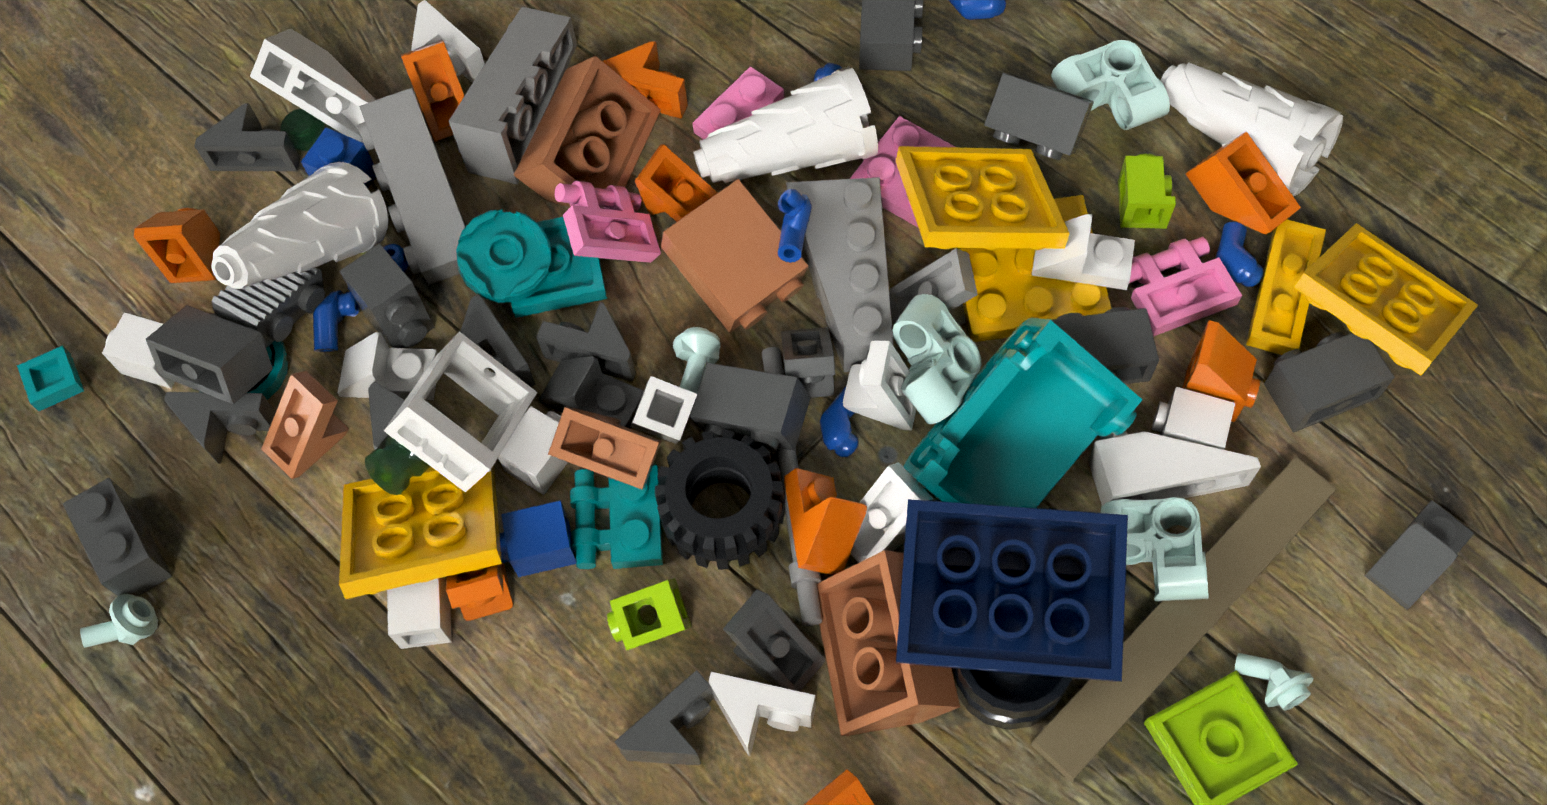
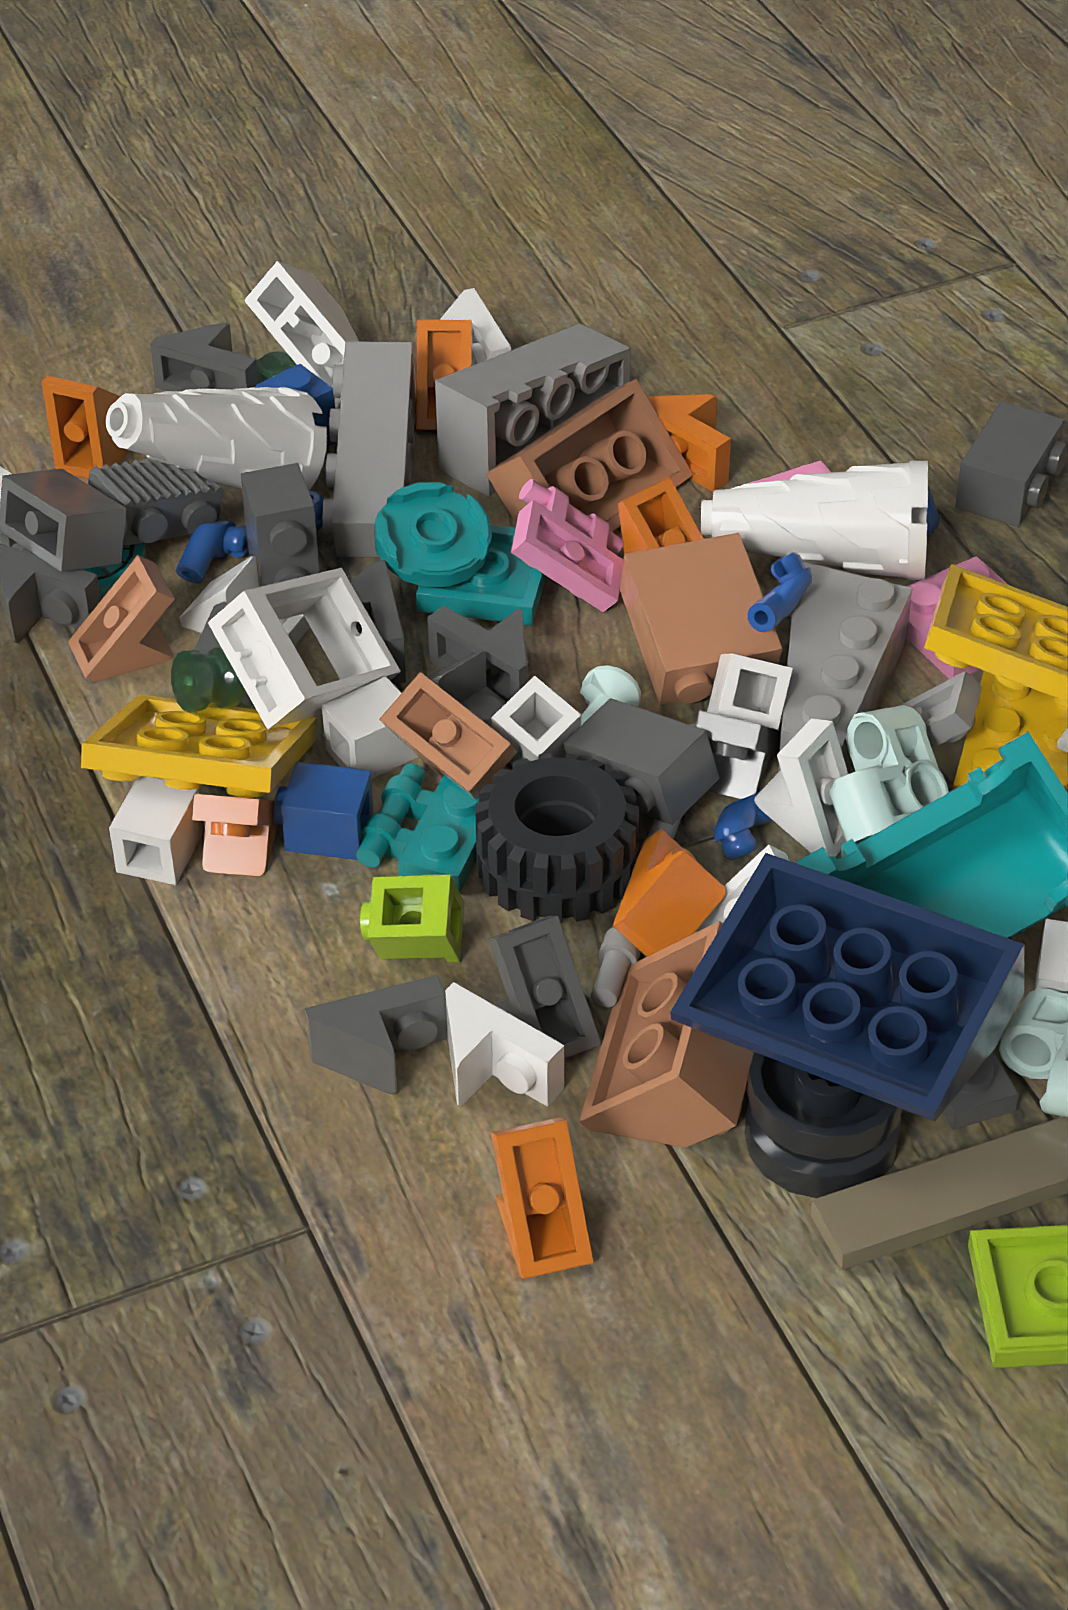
camera: 20 degrees right, 20 degrees down
(803, 316) = (750, 690): none -> white brick

